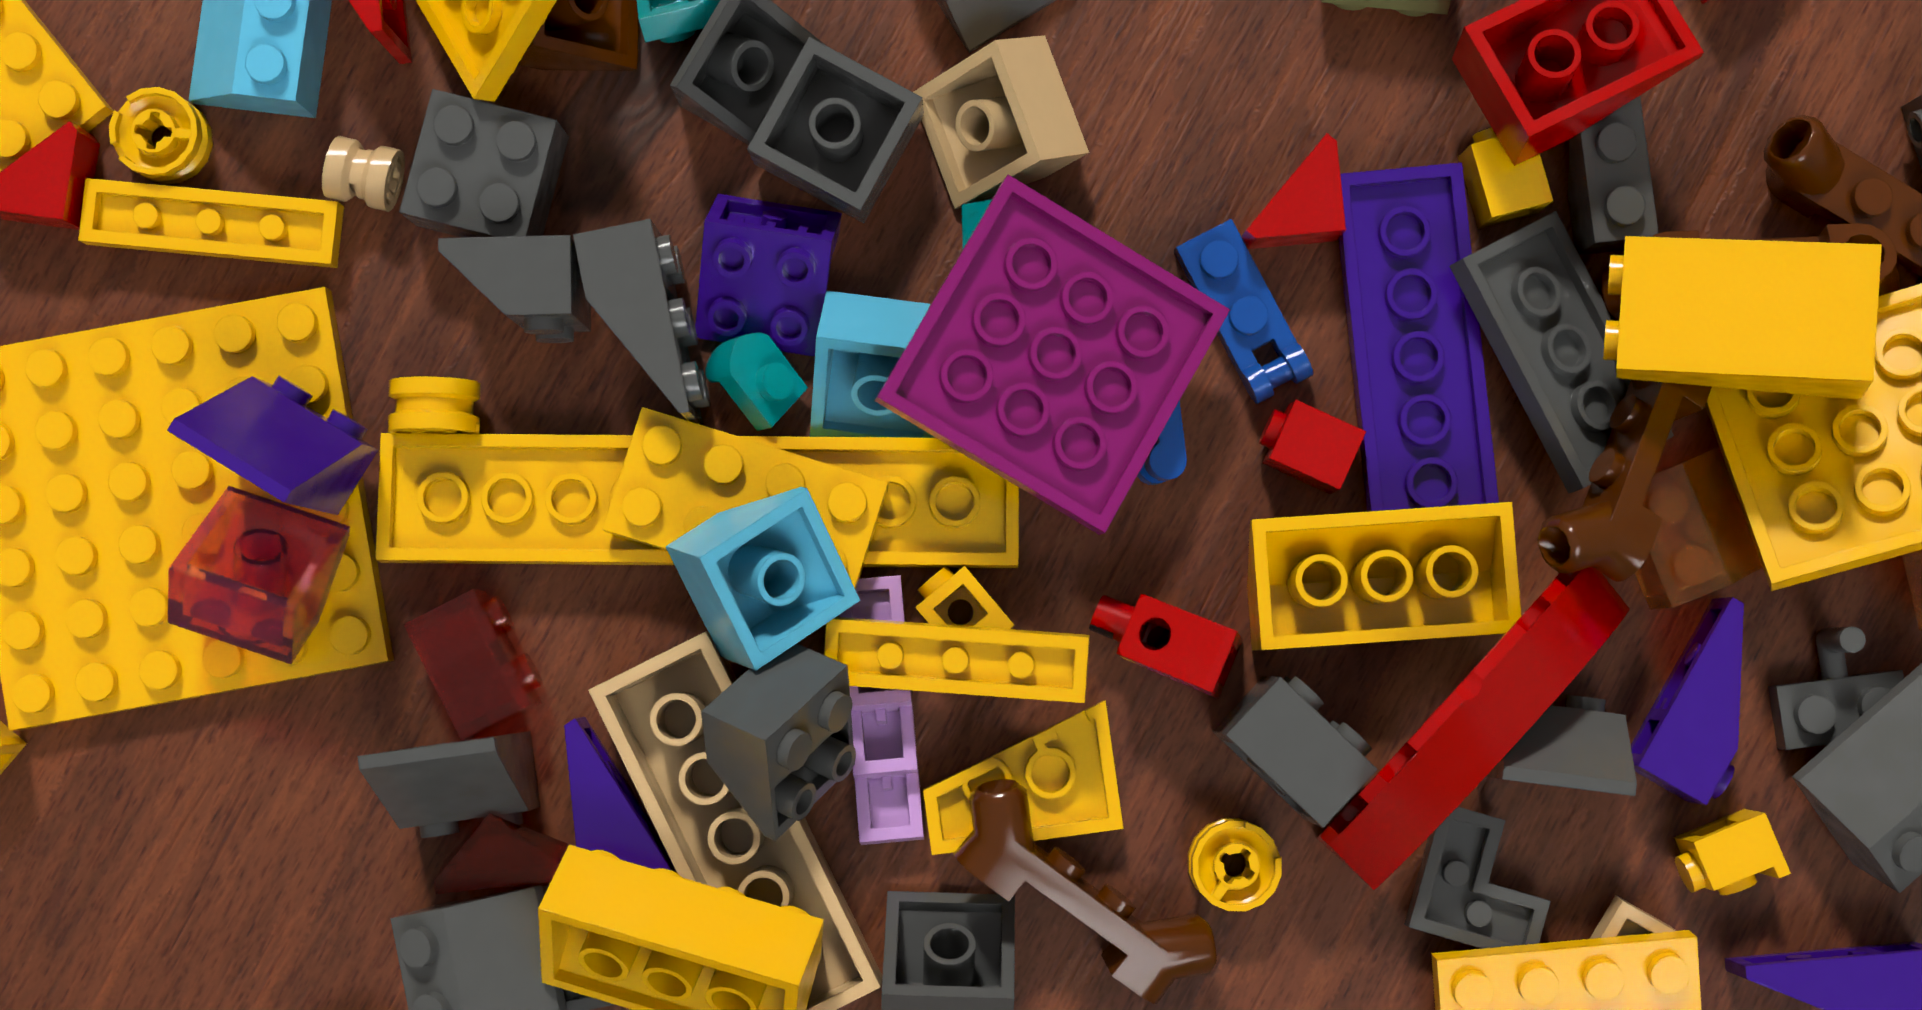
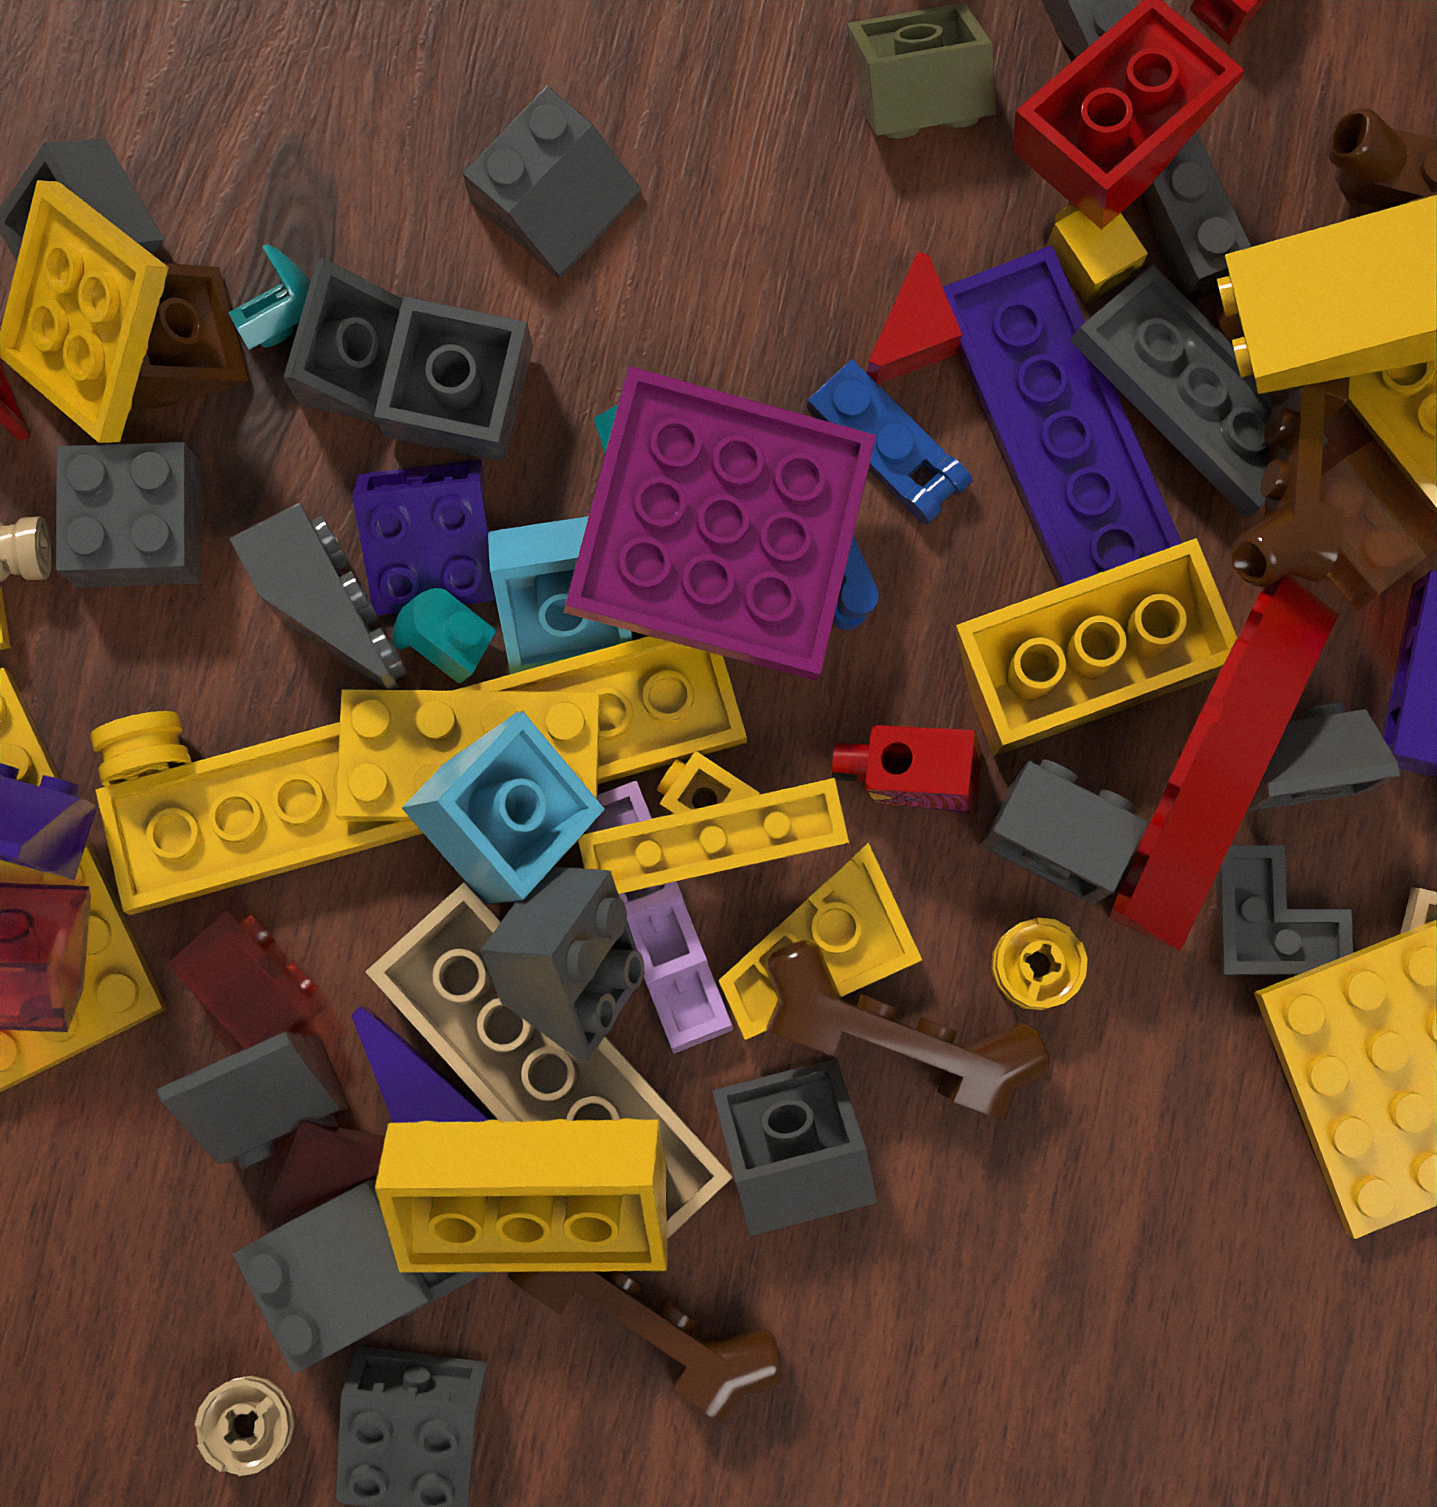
camera: 15 degrees left, 5 degrees down
(528, 280) = (197, 599): dark grey slope -> none
(999, 118) = (600, 320): tan slope -> none
(1311, 445) = (991, 546): red brick -> none

